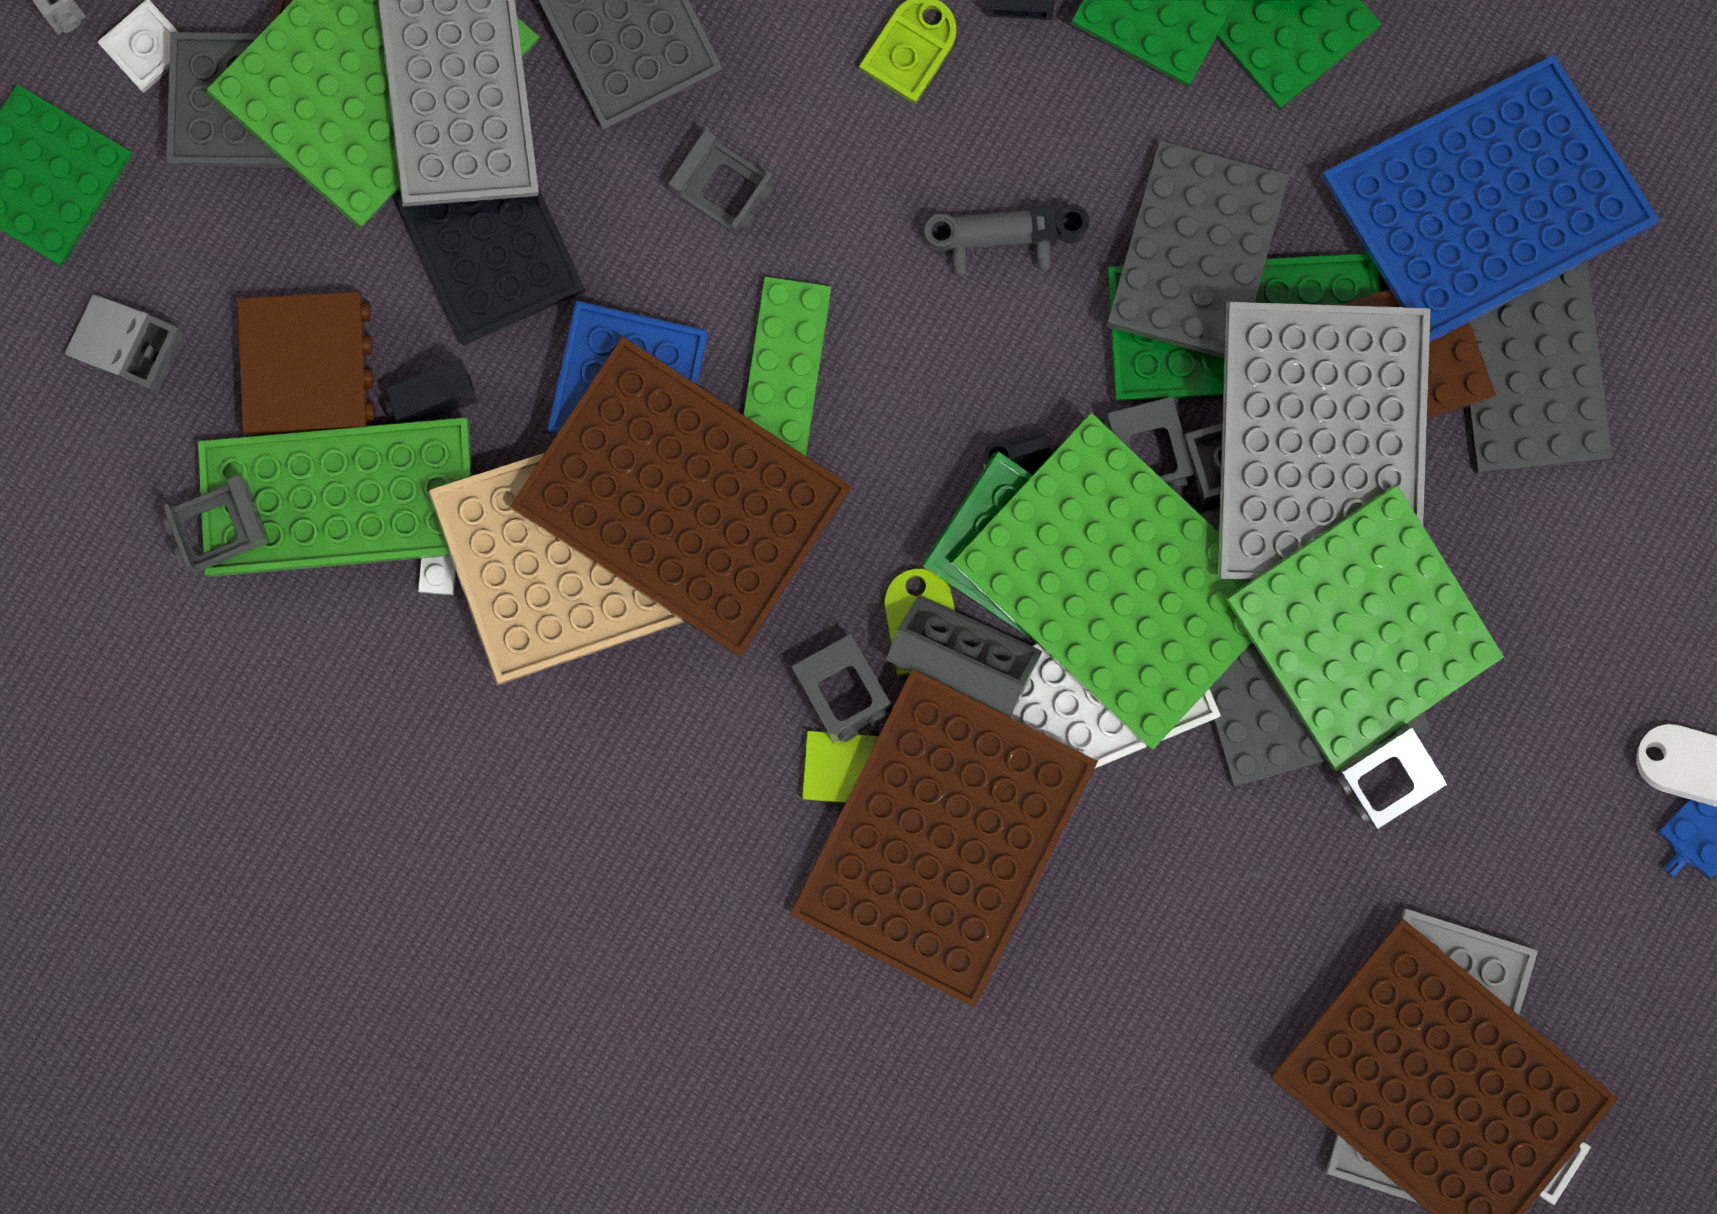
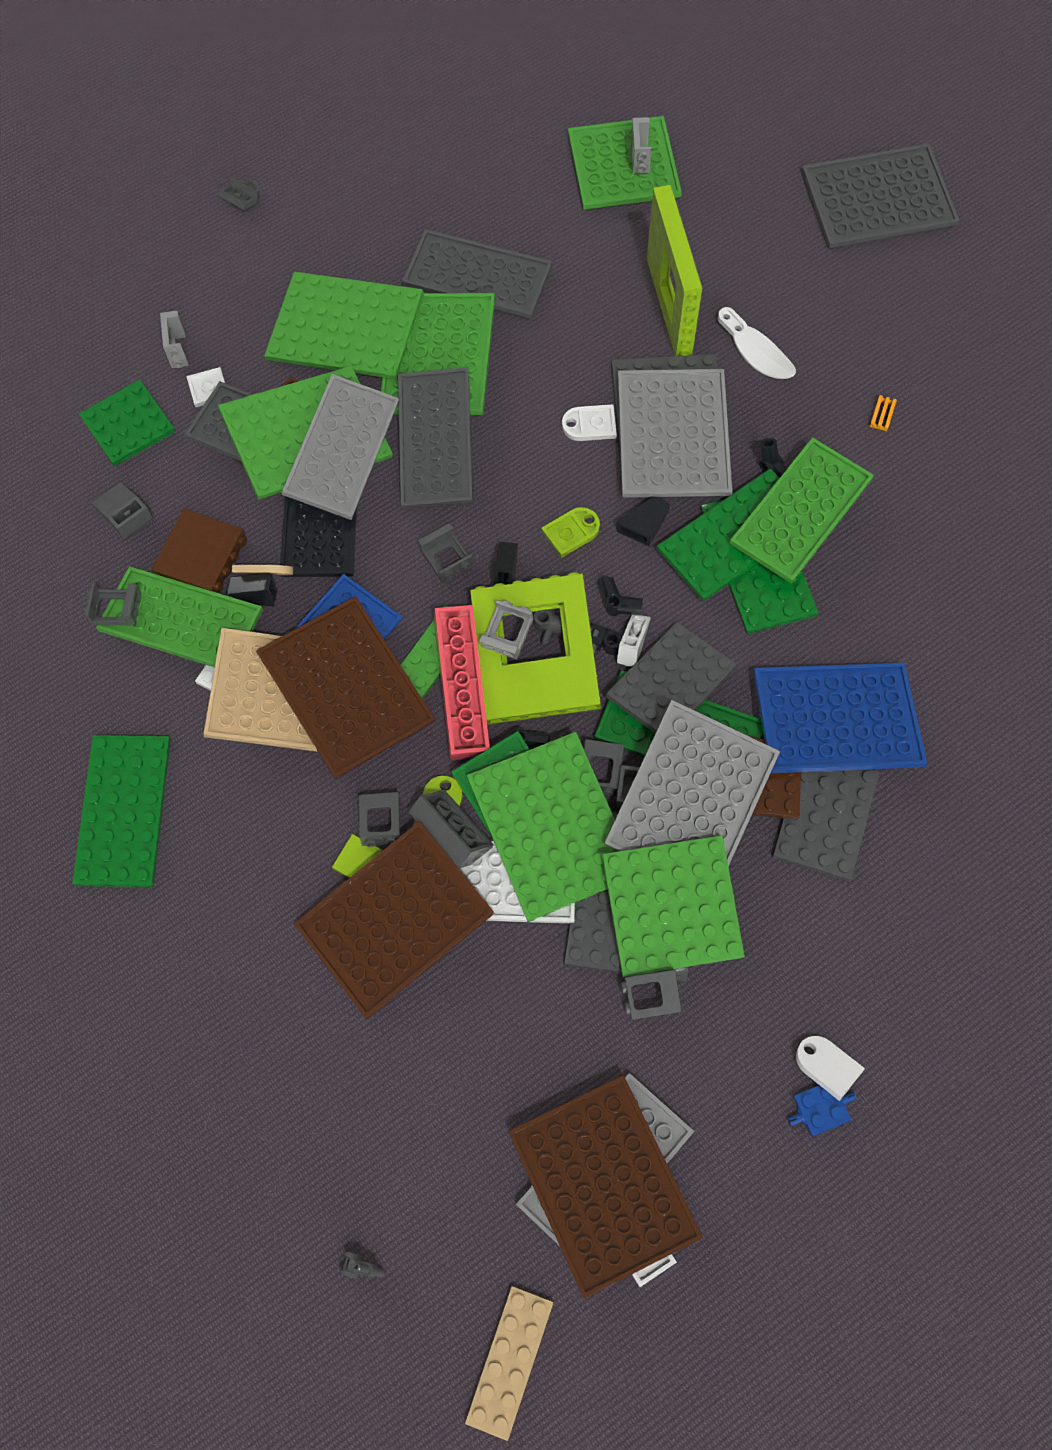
camera: 30 degrees right, 15 degrees down
(417, 856) = (122, 811): none -> green plate
(440, 353) = (262, 569): none -> tan tile
(837, 171) = (506, 563): none -> black slope
(863, 404) = (461, 682): none -> coral brick
(902, 316) = (501, 645): none -> light grey window
(992, 352) = (544, 685): none -> lime panel
(1030, 137) = (610, 595): none -> black piece
(1104, 203) = (633, 640): none -> white slope

